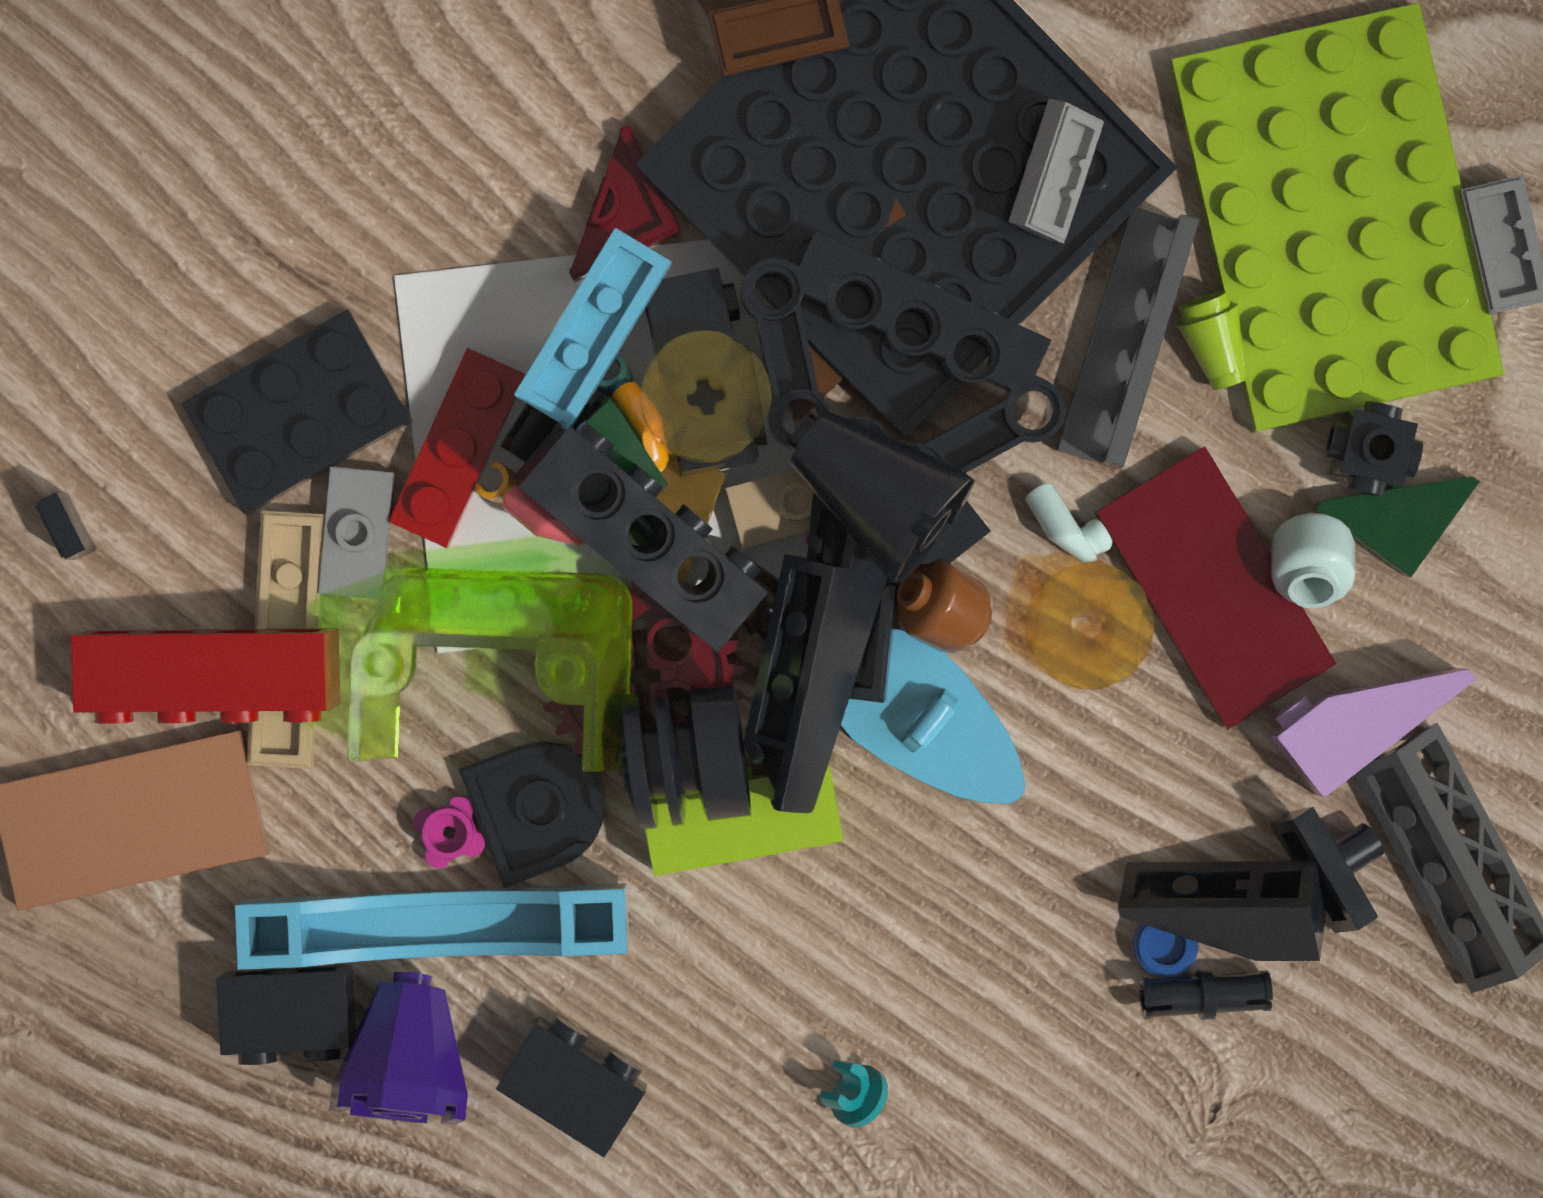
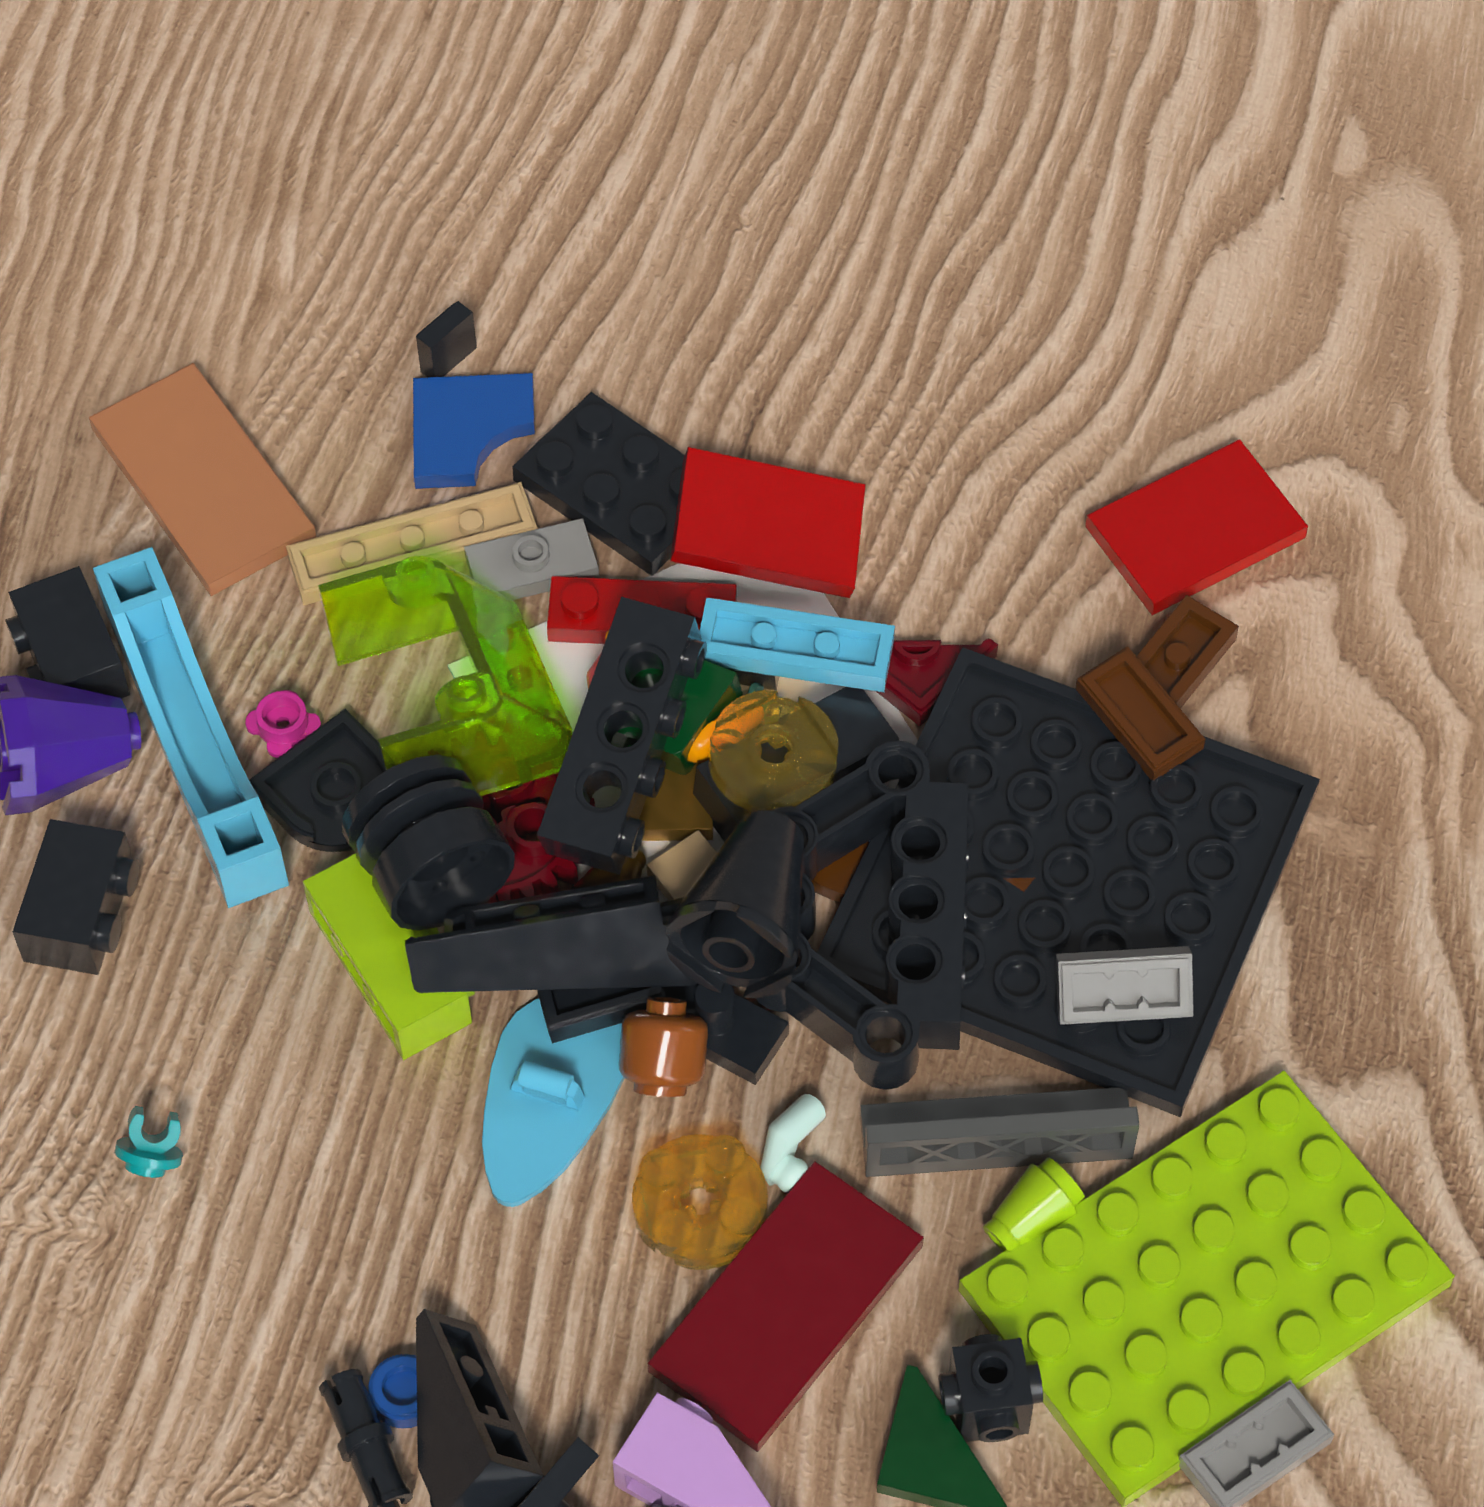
camera: 65 degrees right, 30 degrees down
(162, 541) = (464, 421): none -> blue tile
(206, 672) = (355, 468): red brick -> none
(411, 290) = (768, 522): none -> red tile
(1313, 560) = (852, 1370): light aqua head -> none

